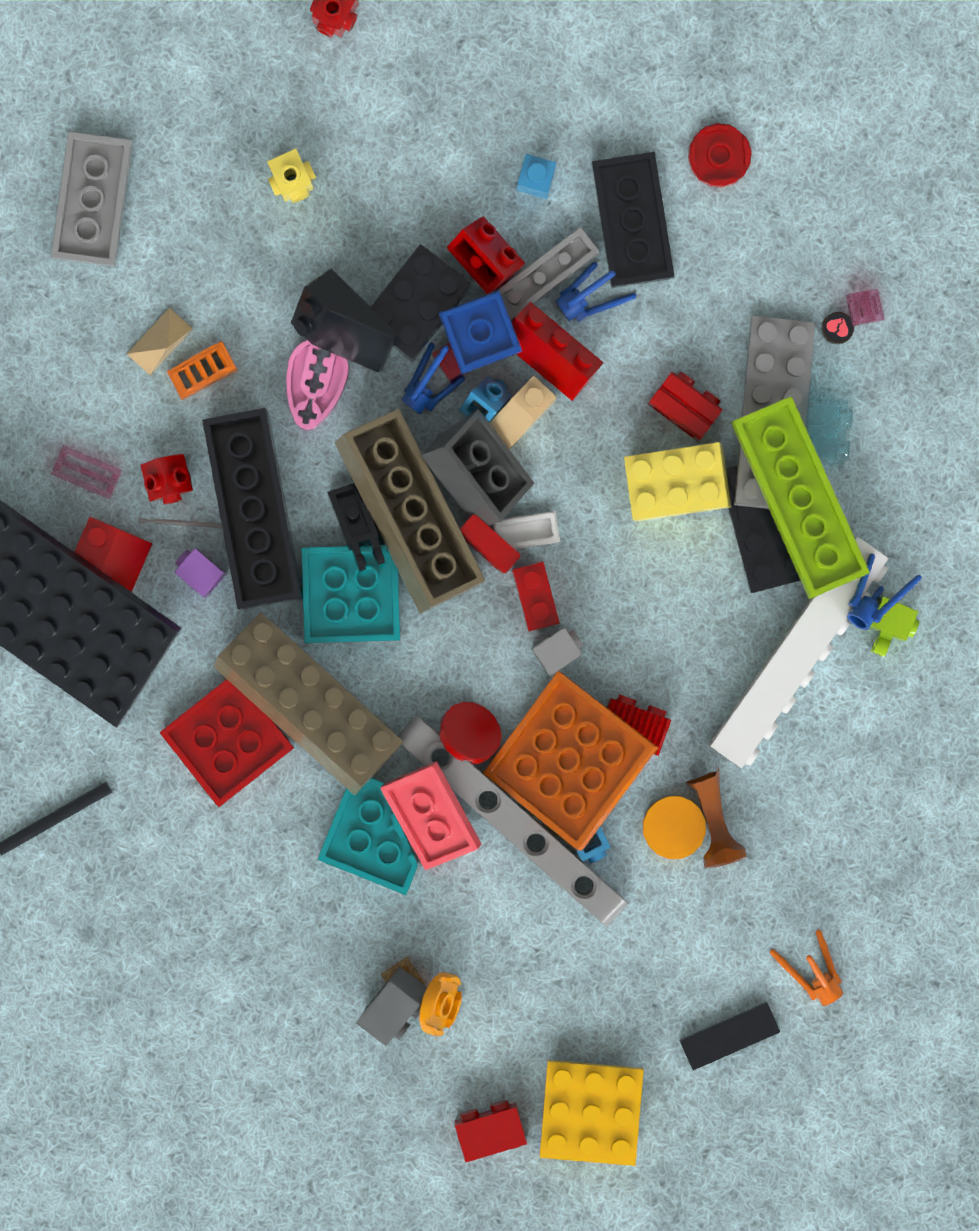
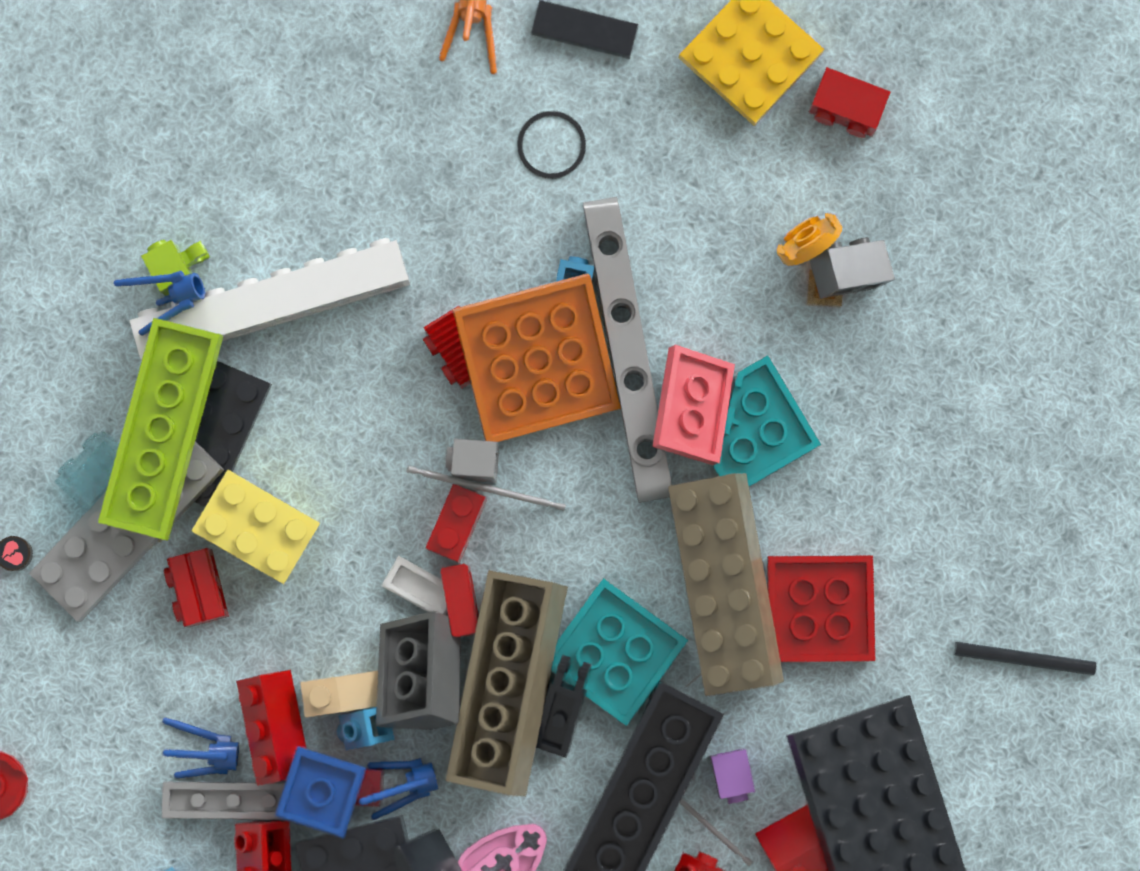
camera: 140 degrees left, 5 degrees down
(470, 732) = (604, 450): red tile -> none
(523, 643) = (478, 486): none -> light grey piece
(633, 219) = (111, 788): black plate -> none
(674, 827) = (493, 237): light orange tile -> none
(715, 924) = (546, 114): none -> black piece
(723, 847) = (464, 188): dark orange animal -> none

